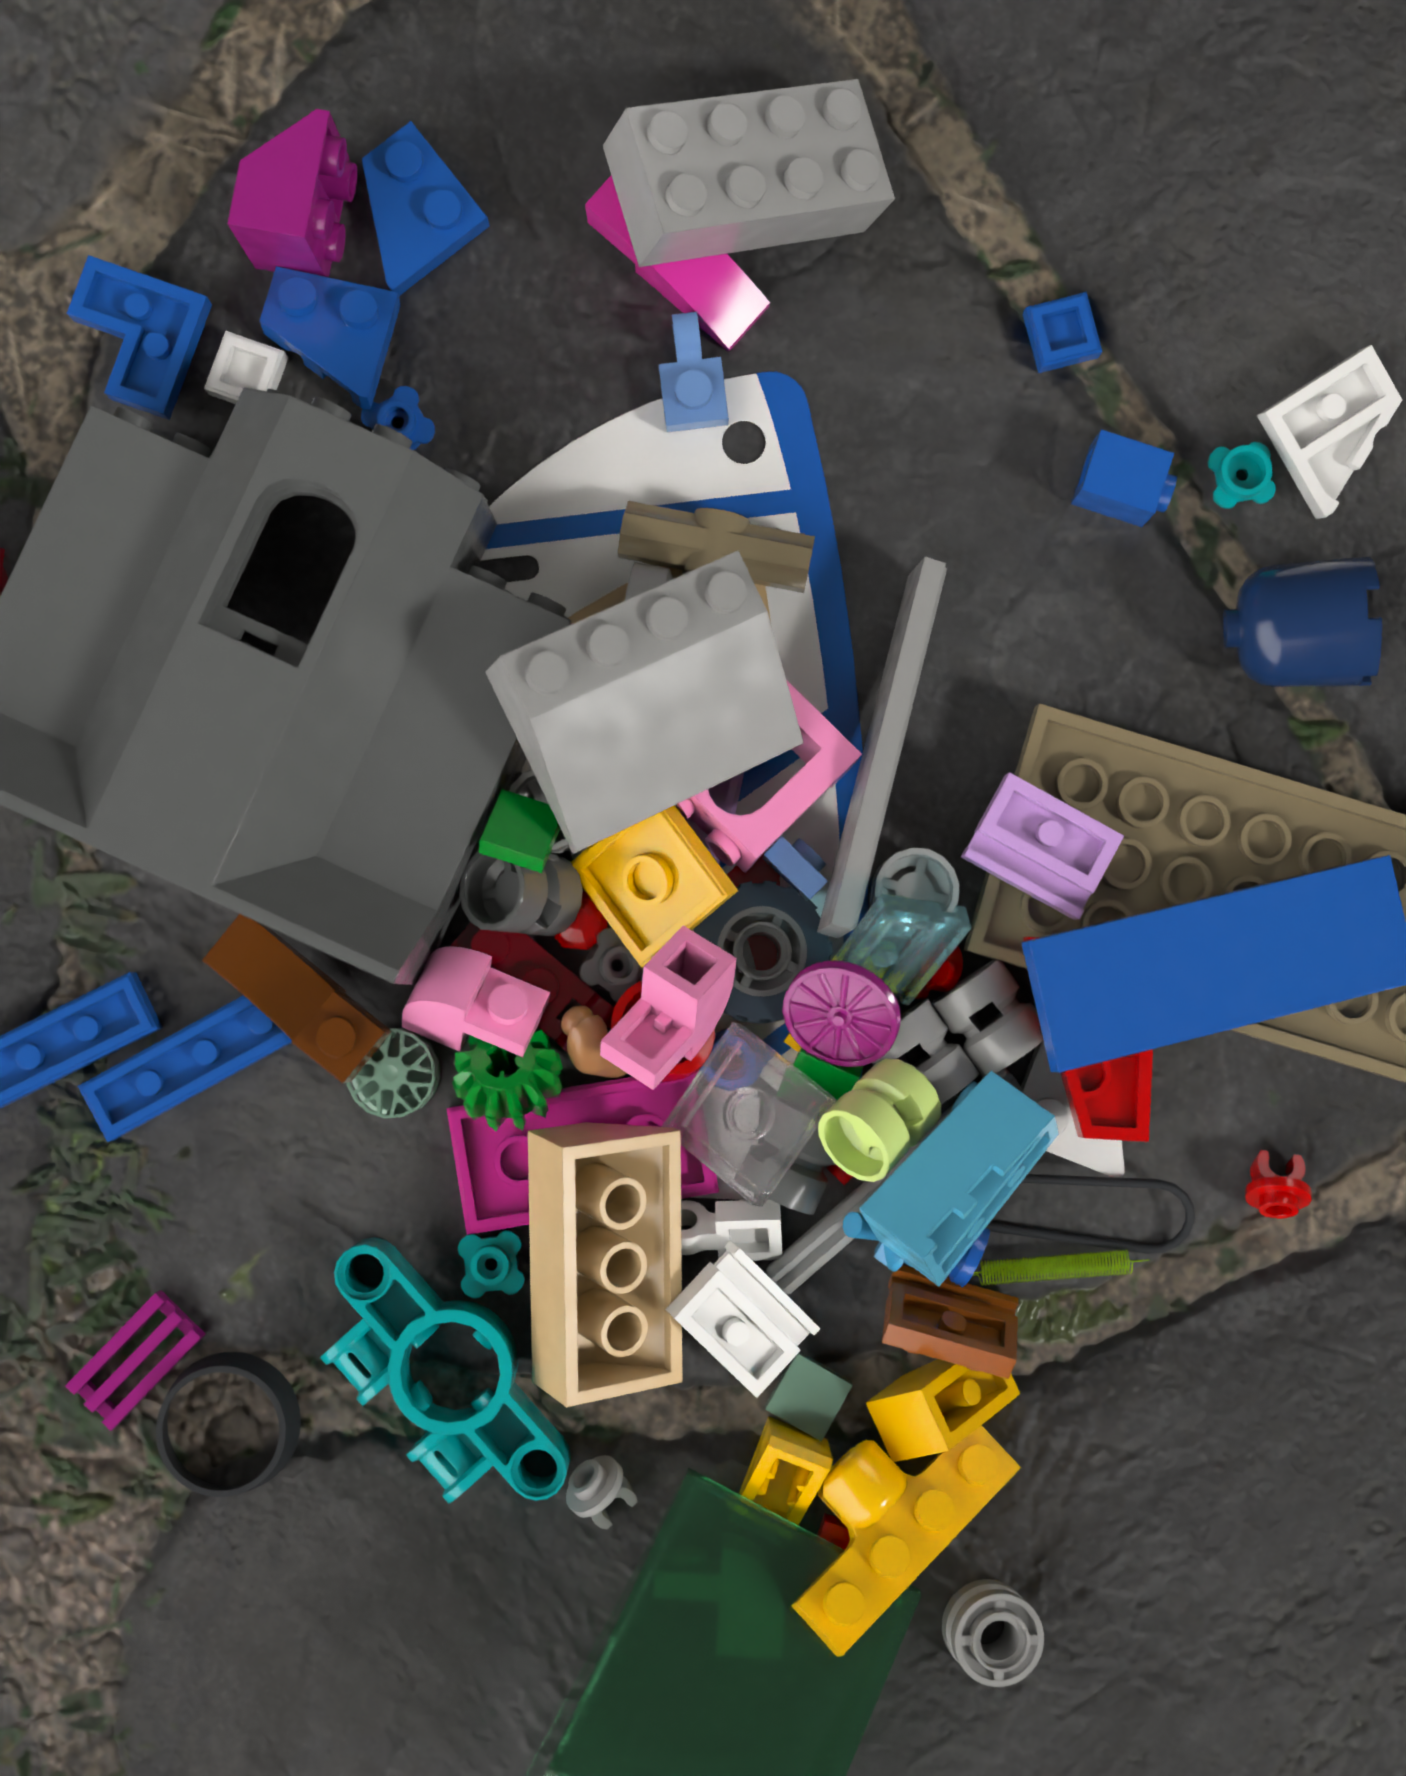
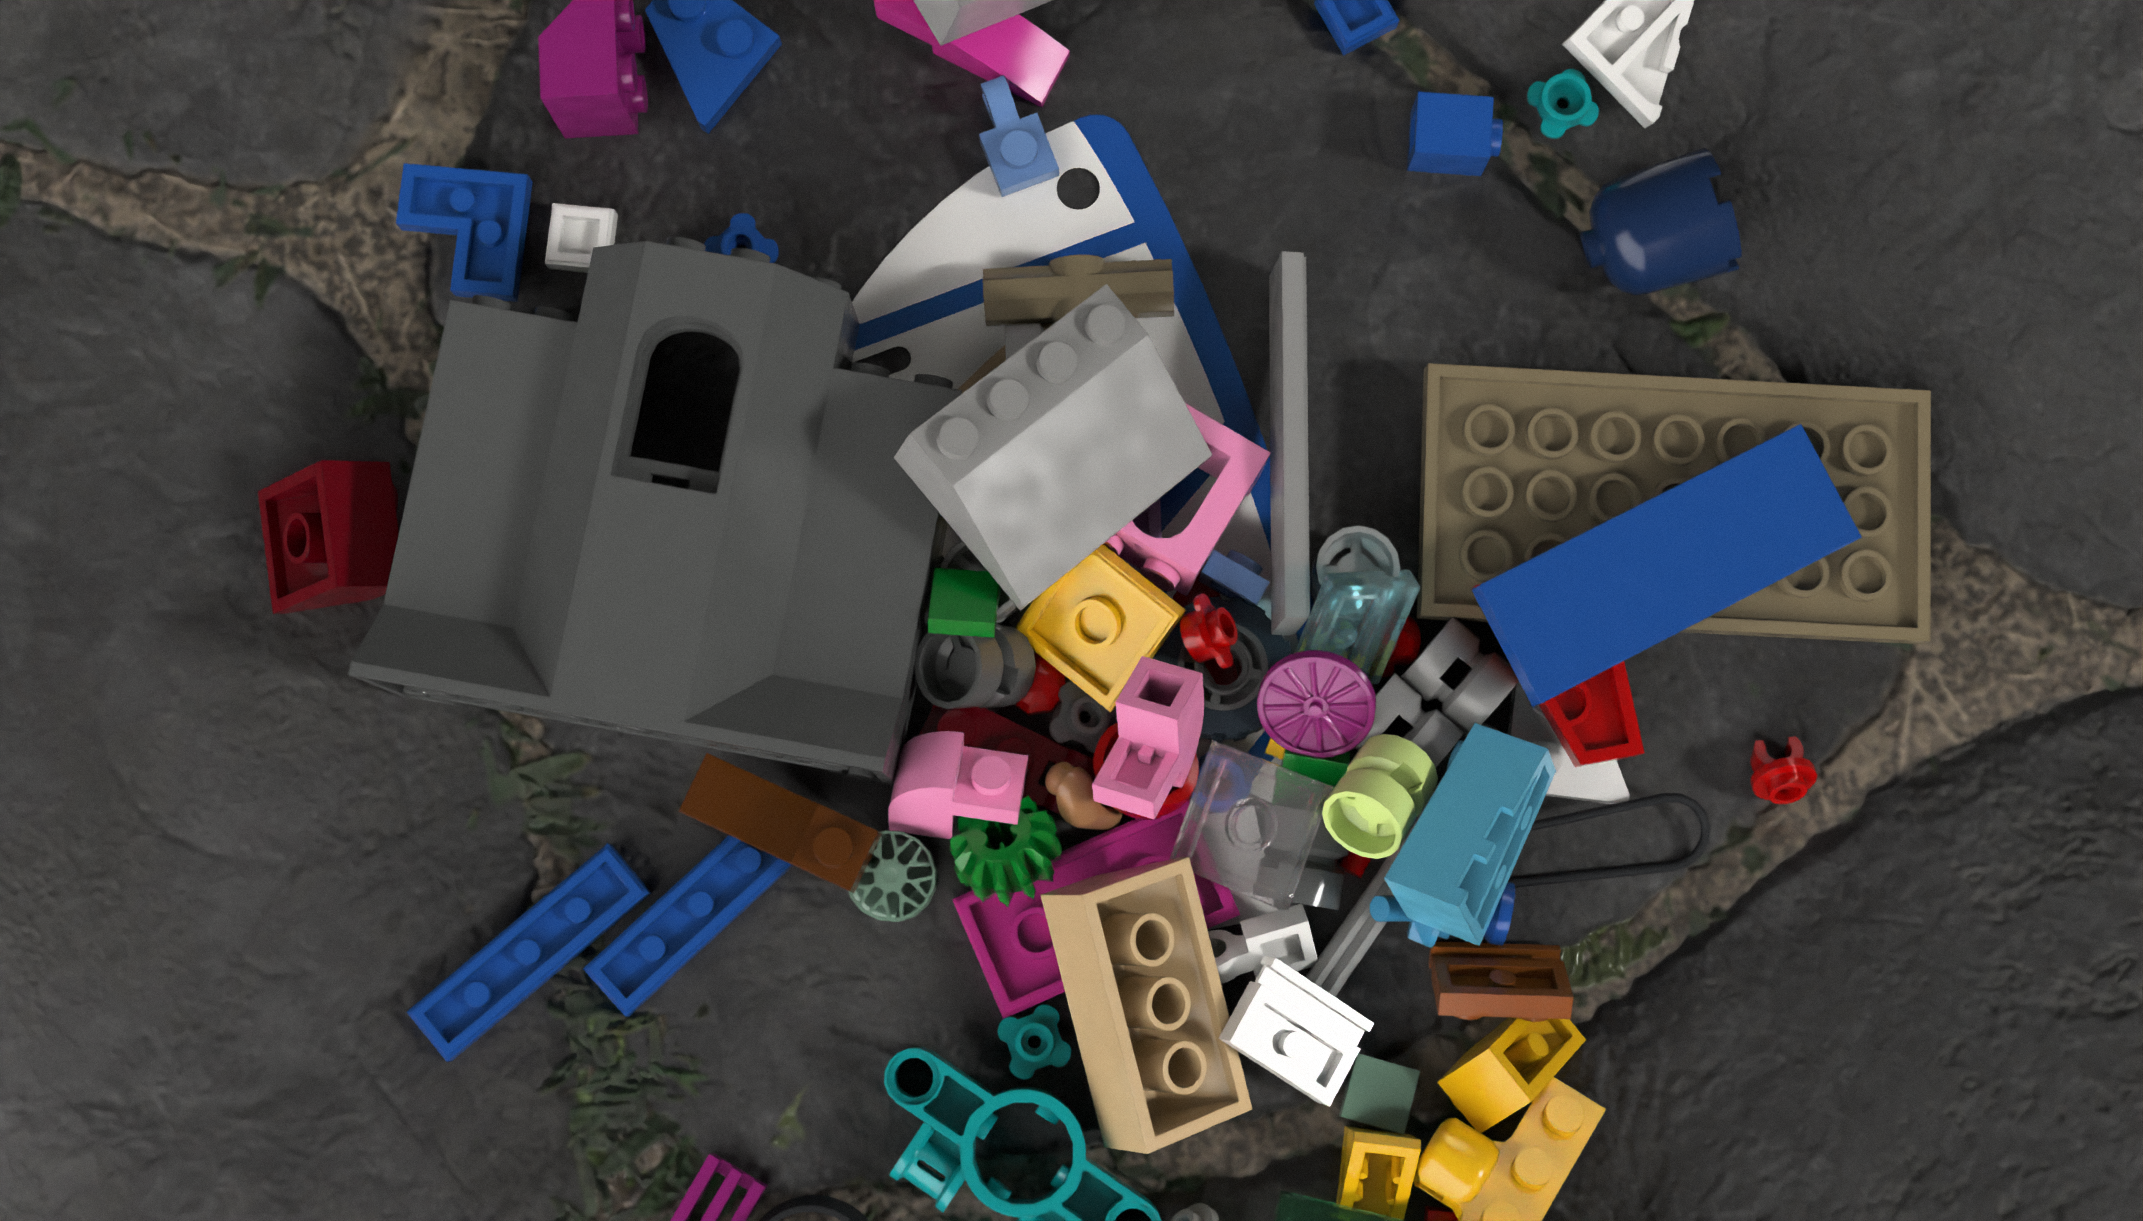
camera: 15 degrees left, 5 degrees down
(333, 327) = (655, 175): blue wing -> none
(754, 918) = (1209, 632): none -> red plate
(1042, 846) = (1467, 496): lavender plate -> none
(1059, 1269) = (1582, 913): lime piece -> none

